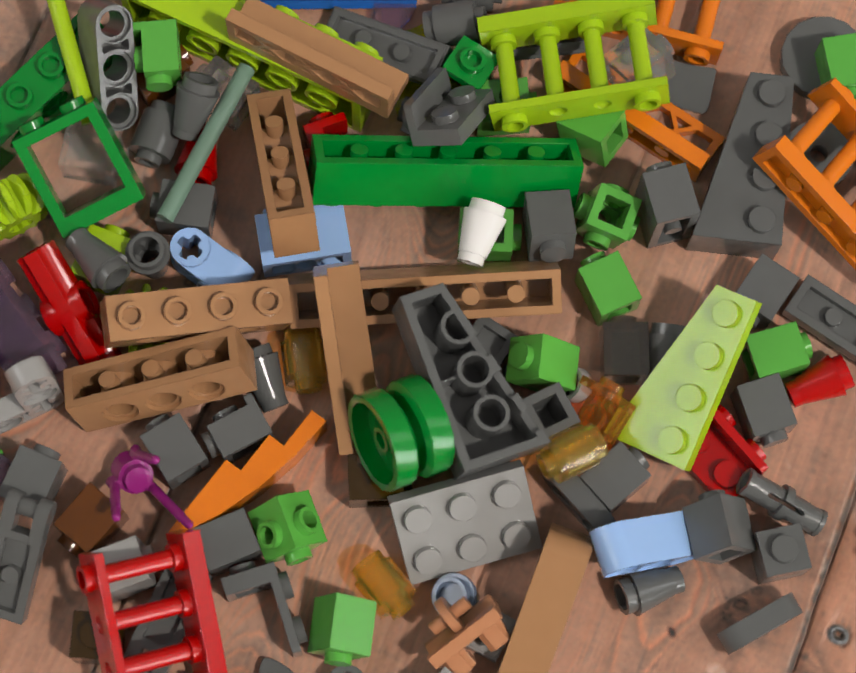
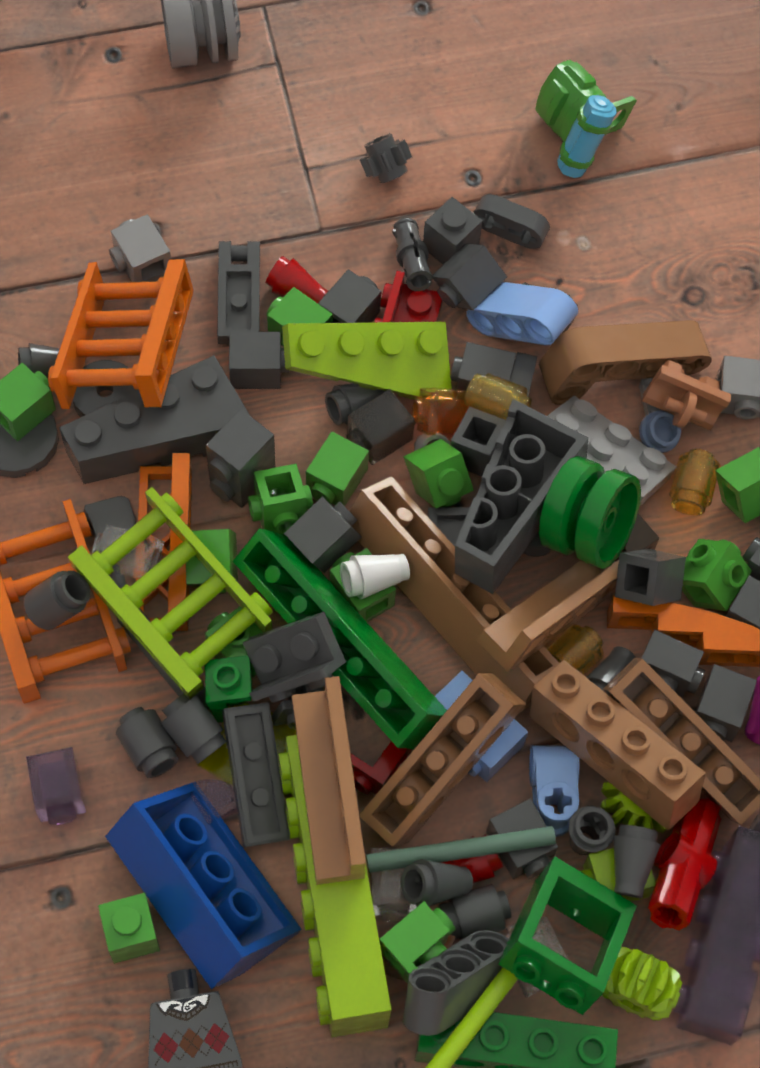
camera: 125 degrees left, 10 degrees down
(316, 458) = (650, 576): none -> dark grey brick

